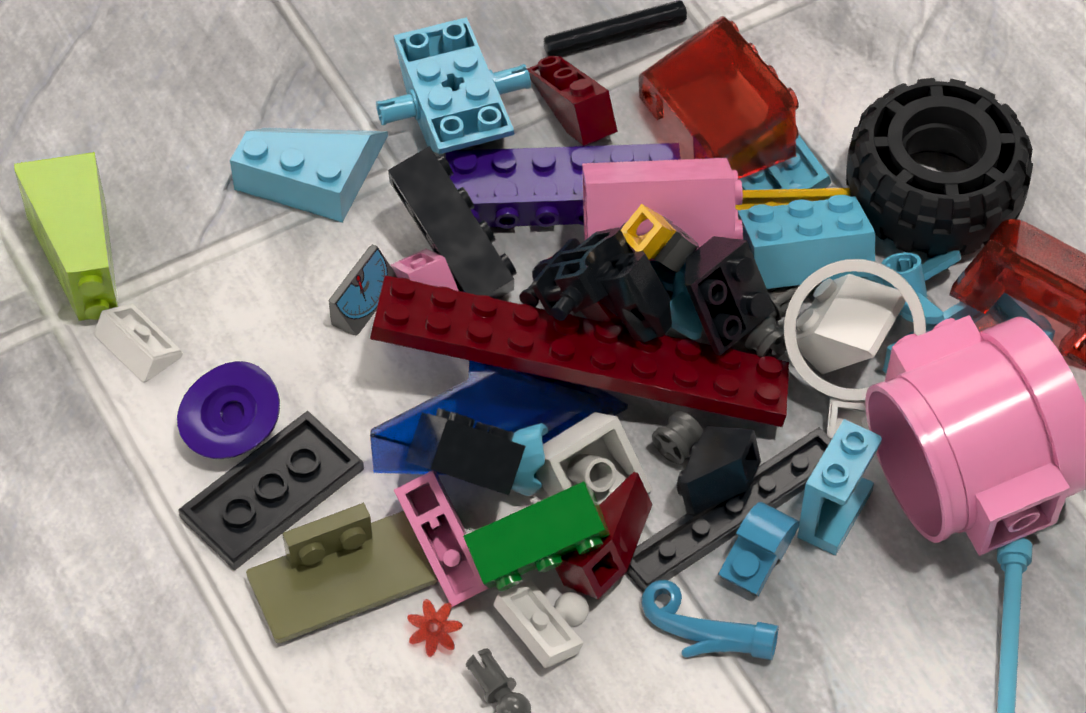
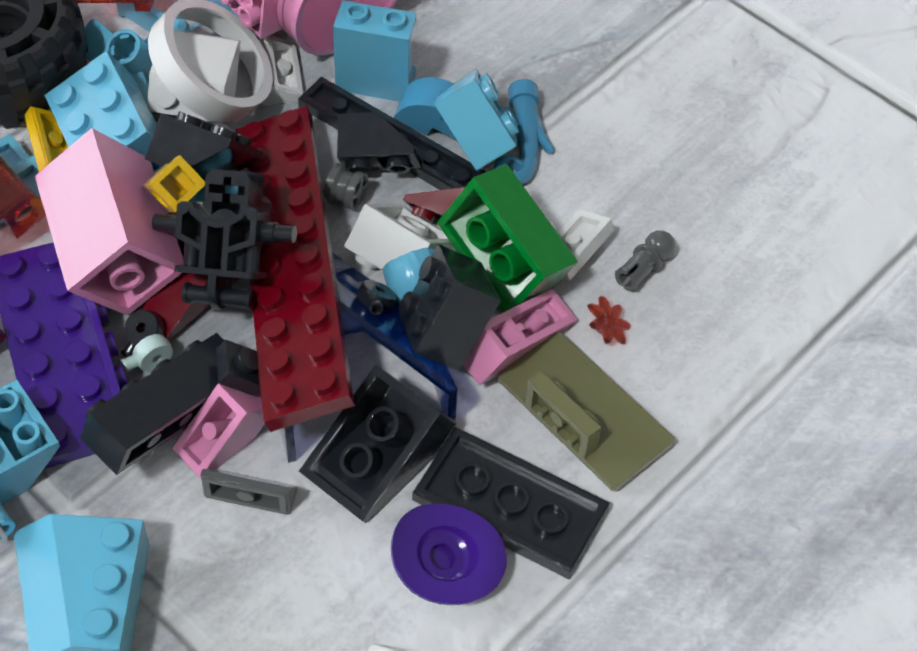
camera: 110 degrees left, 0 degrees up
(361, 390) = (376, 444): none -> black slope
(461, 275) = (238, 367): none -> black plate
(503, 411) = (376, 297): none -> black piece
(527, 243) = (148, 353): none -> light aqua piece
(551, 240) = (135, 327): none -> black piece
(718, 562) = (477, 118): none -> medium azure slope

